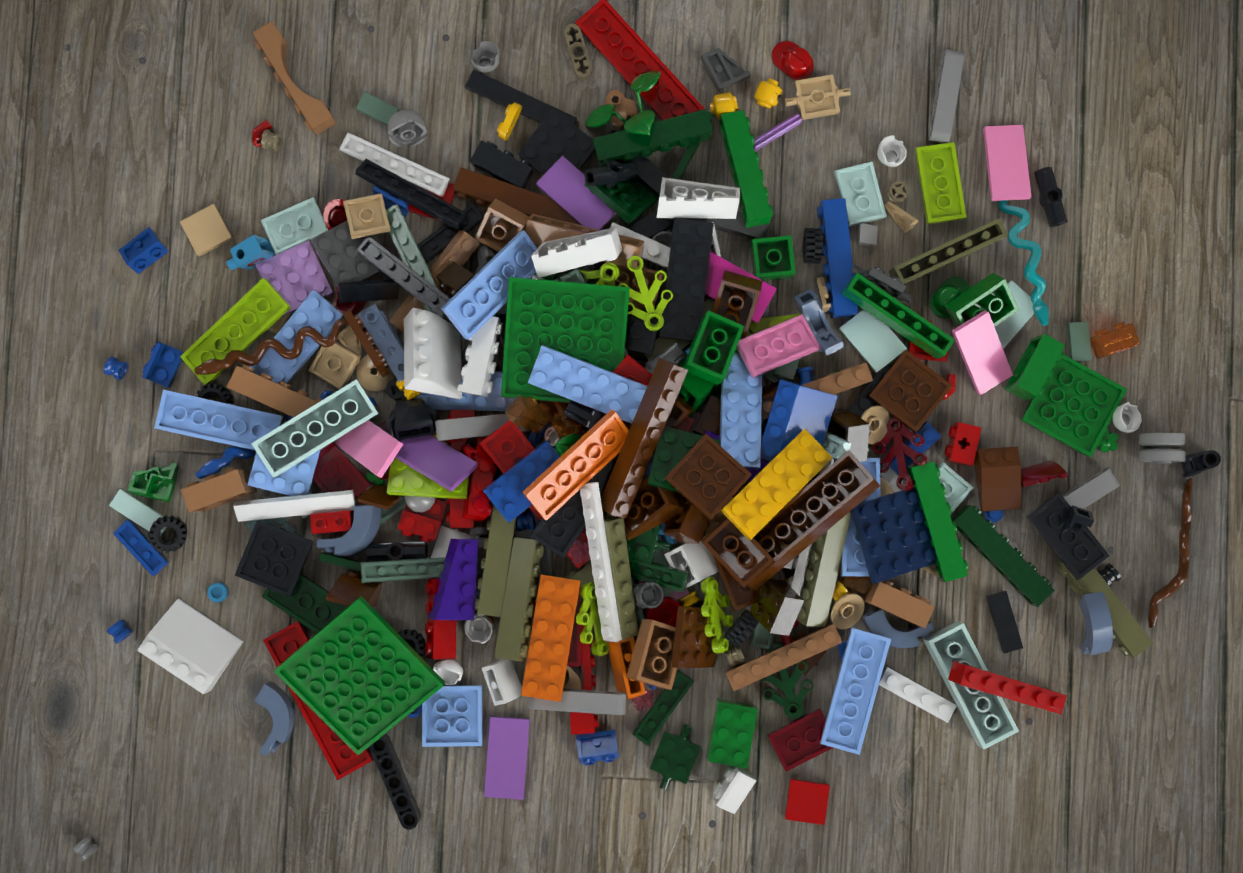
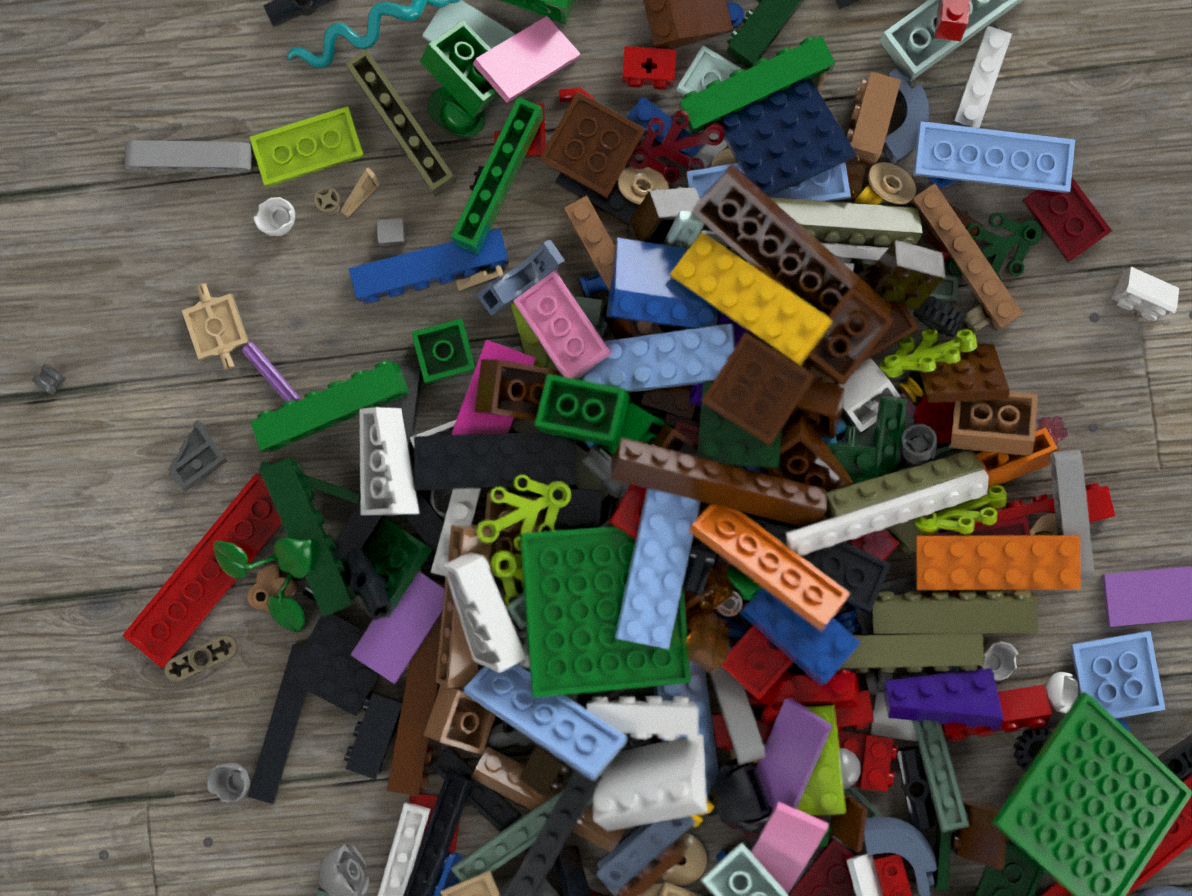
camera: 90 degrees left, 0 degrees up
(392, 386) = (706, 833): black wheel -> none
(502, 681) = (1064, 617): white brick -> none
(512, 113) = (322, 738): yellow plate -> none
(597, 747) = (1124, 479): blue bracket -> none
(662, 708) = (1060, 403): dark green tile -> none
(675, 757) = (1118, 376): dark green plate -> none
(723, 104) = (245, 449): yellow head -> none
(731, 733) = (1075, 308): green brick -> none
(768, 93) = (221, 392): yellow head -> none
(793, 60) = (169, 367): red piece -> none
(807, 801) = (1144, 197): red tile -> none
(812, 245) = (419, 301): black tyre -> none
(862, 193) = (336, 248): light aqua tile -> none
(872, 340) = (531, 204): light aqua tile -> none
(891, 285) = (451, 209): dark grey plate -> none
(1007, 162) = (266, 63): bright pink tile -> none

